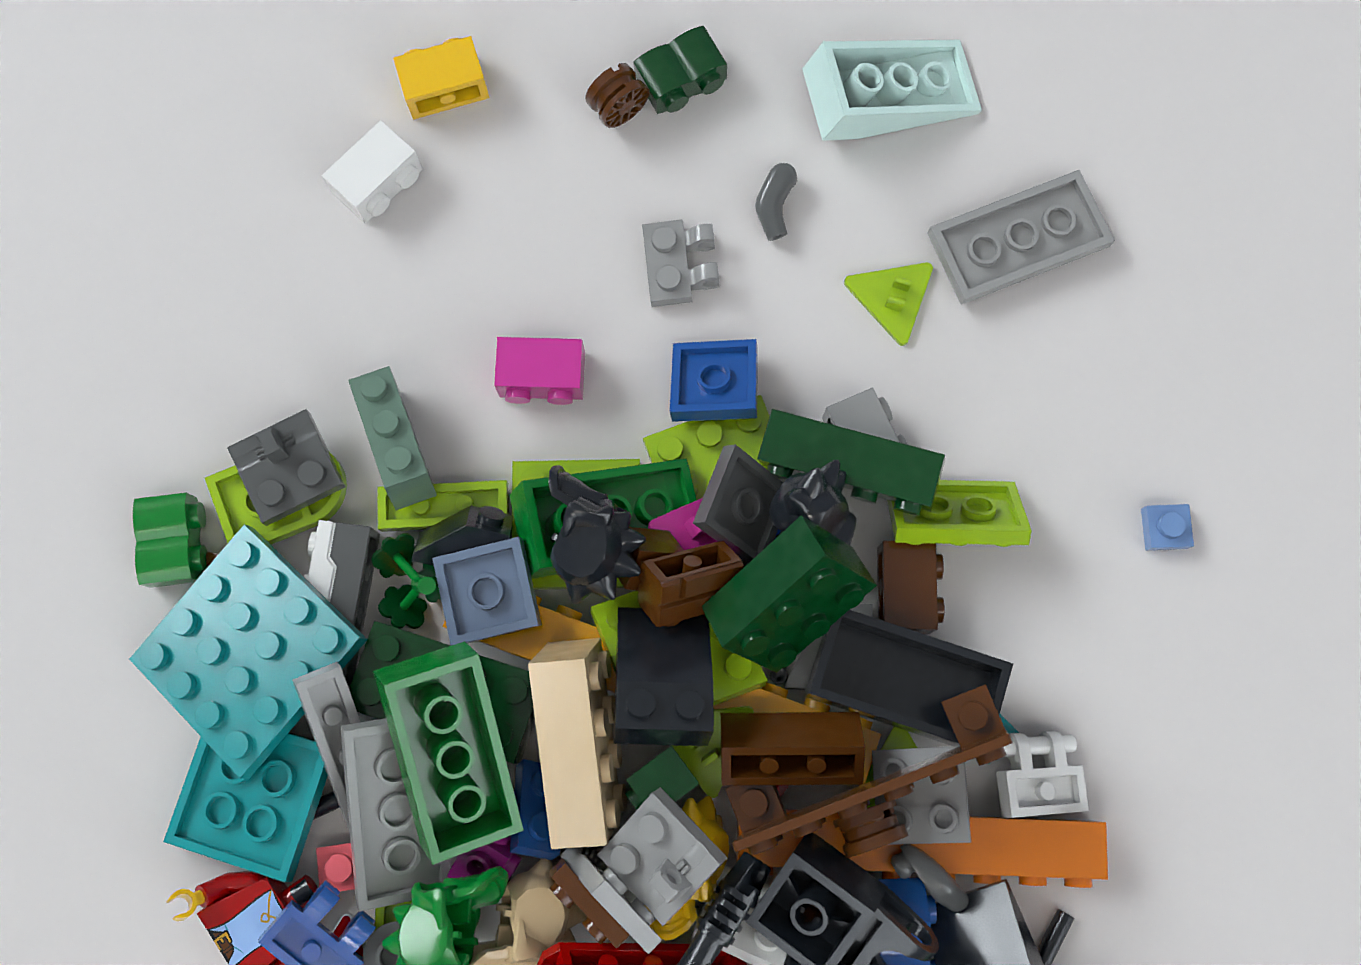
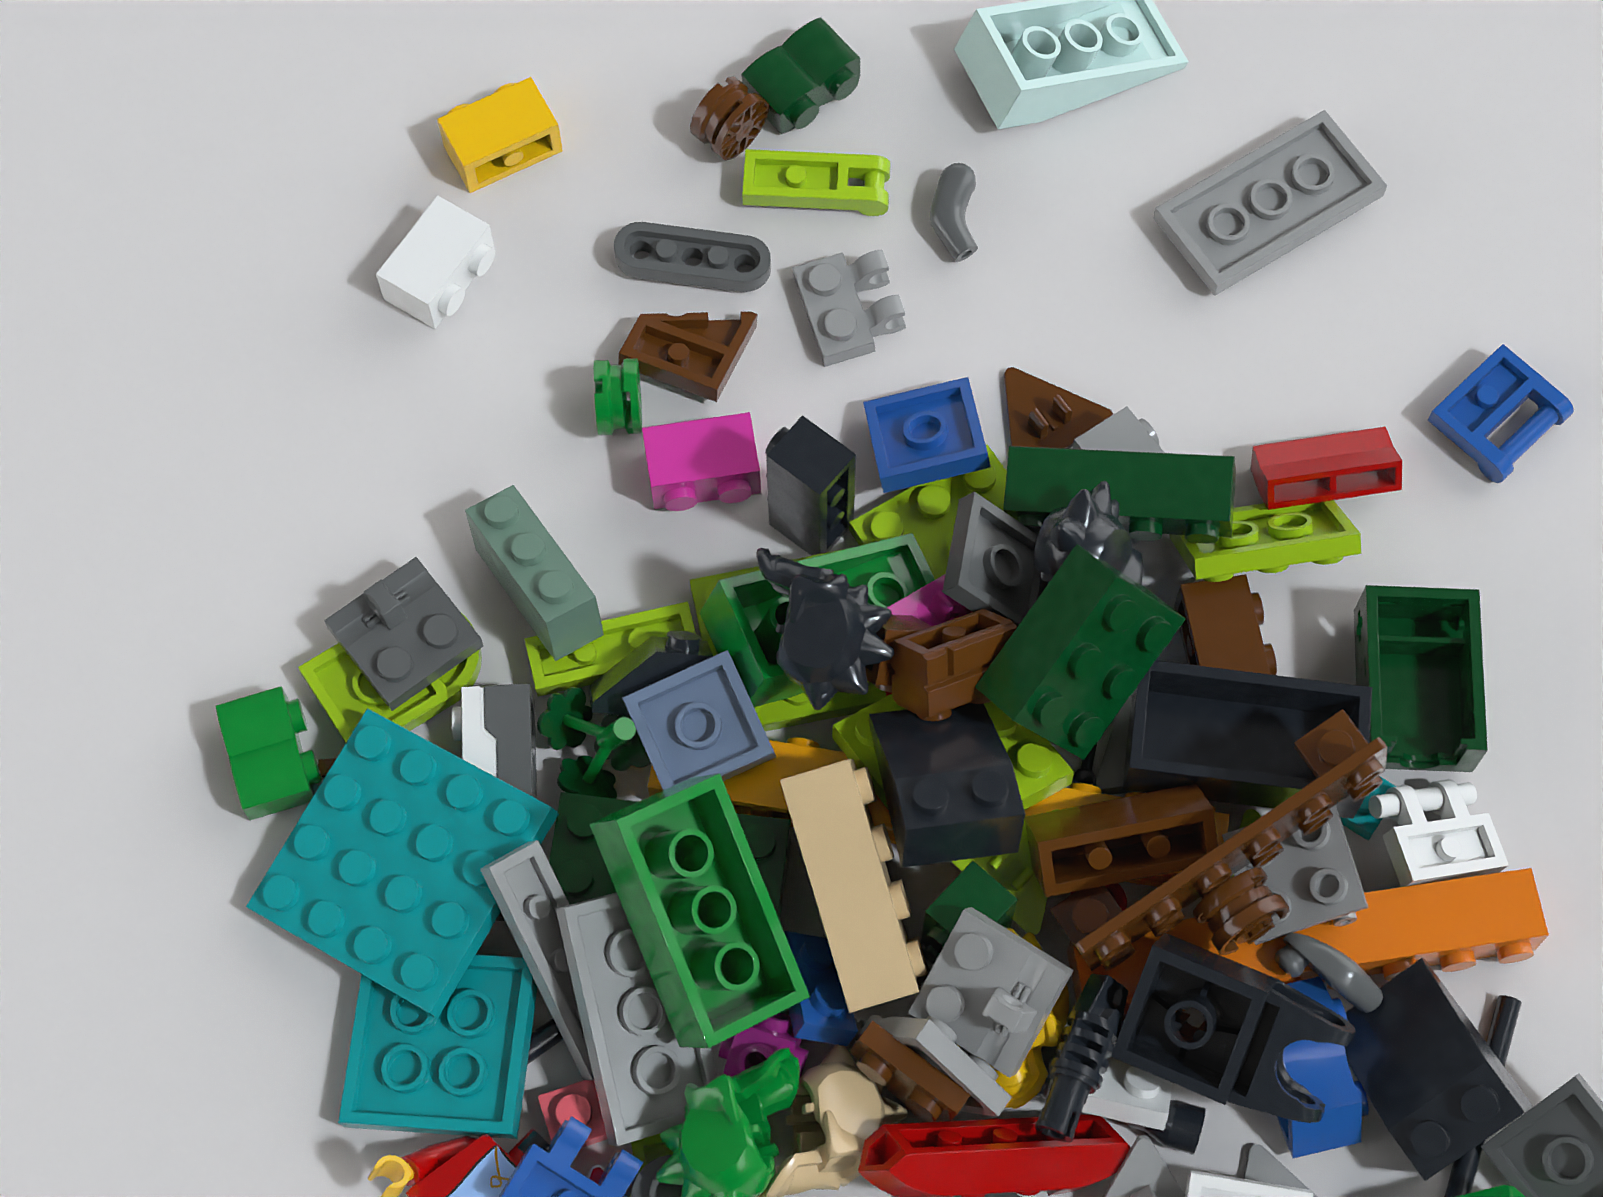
camera: 10 degrees left, 10 degrees down
(486, 306) = (610, 396): none -> green wheel
(549, 276) = (689, 349): none -> reddish brown wing
(556, 190) = (673, 245): none -> dark grey plate
(611, 410) = (810, 486): none -> black brick
(674, 157) = (816, 180): none -> lime plate
(812, 379) = (1045, 413): none -> reddish brown piece
(892, 296) = (1126, 301): lime piece -> none
(1017, 463) = (1326, 468): none -> red piece
(1057, 648) = (1425, 673): none -> dark green piece
(1155, 429) = (1488, 400): none -> blue plate
(1167, 527) = (1530, 514): medium blue plate -> none

